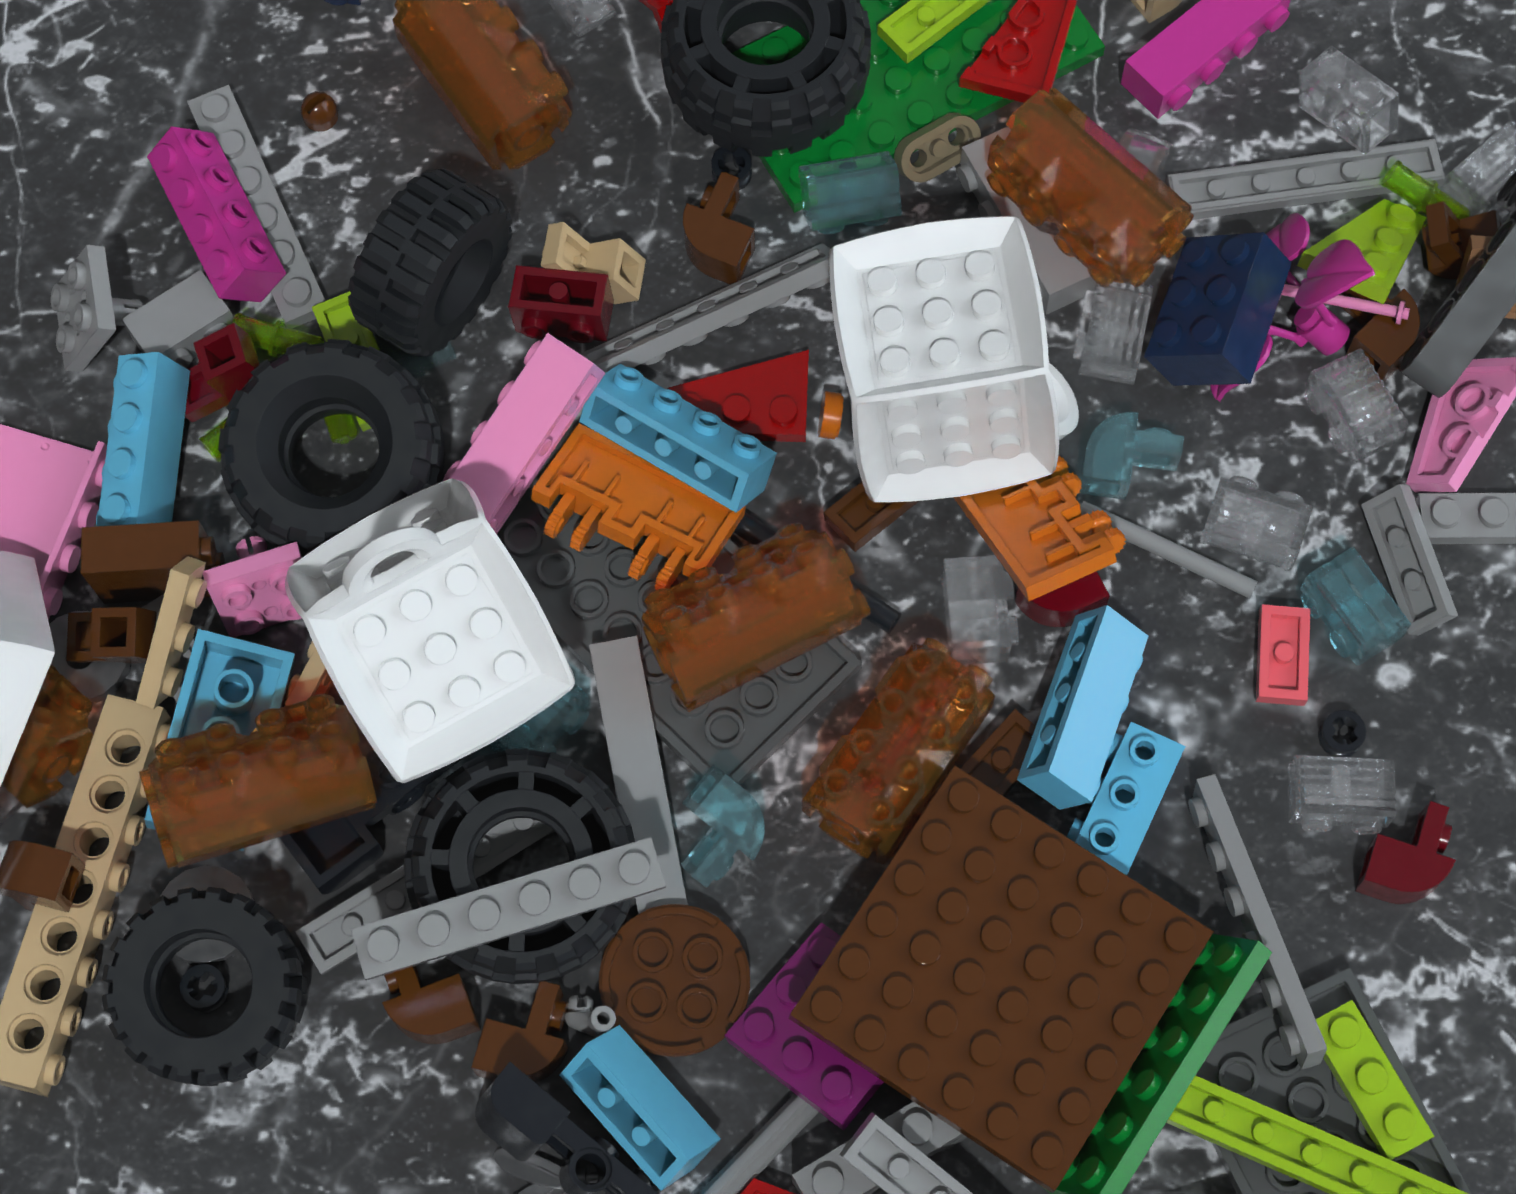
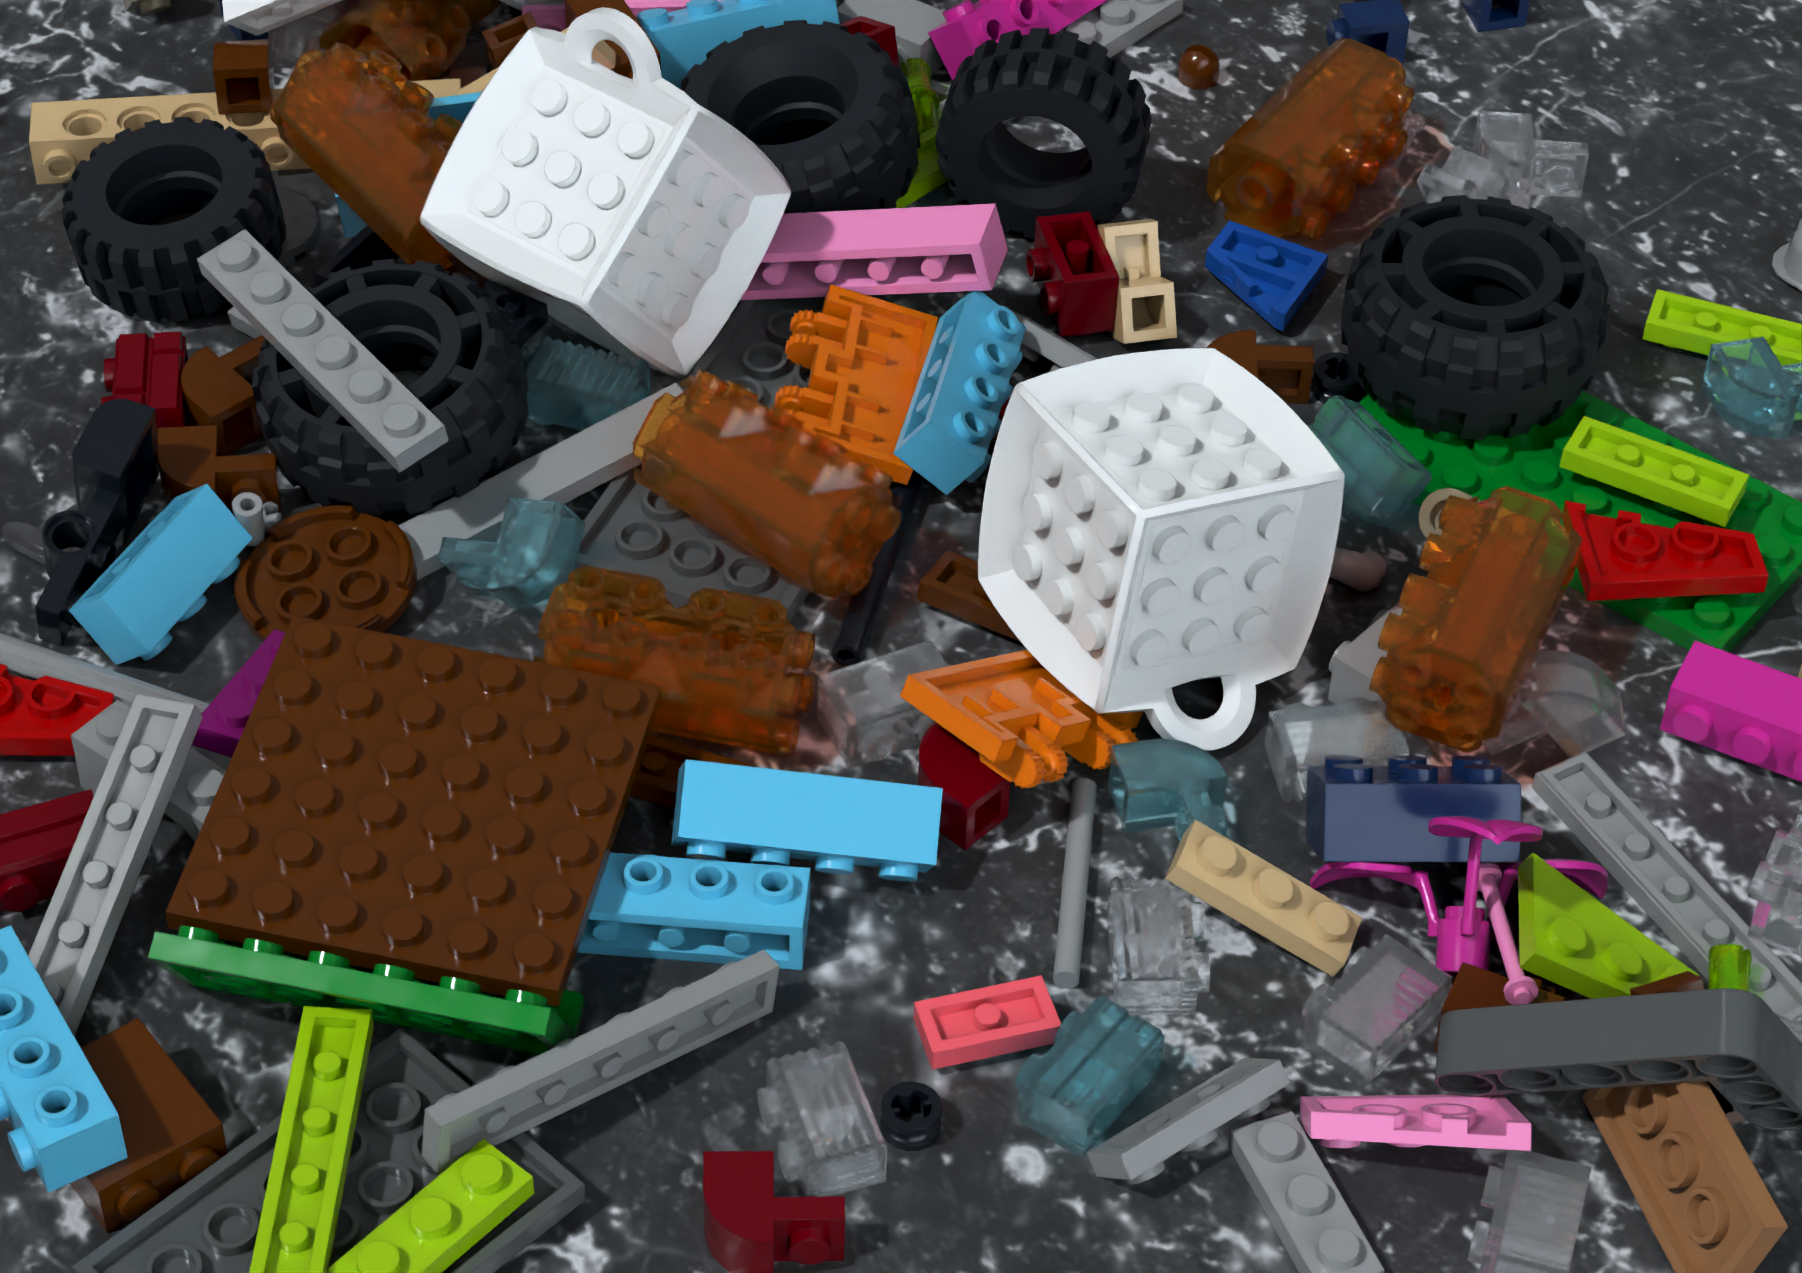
camera: 65 degrees right, 25 degrees down
(397, 1065) = (150, 374): none -> dark red brick
(596, 166) = (1265, 271): none -> blue wing
(1246, 435) = (1264, 898): none -> tan plate

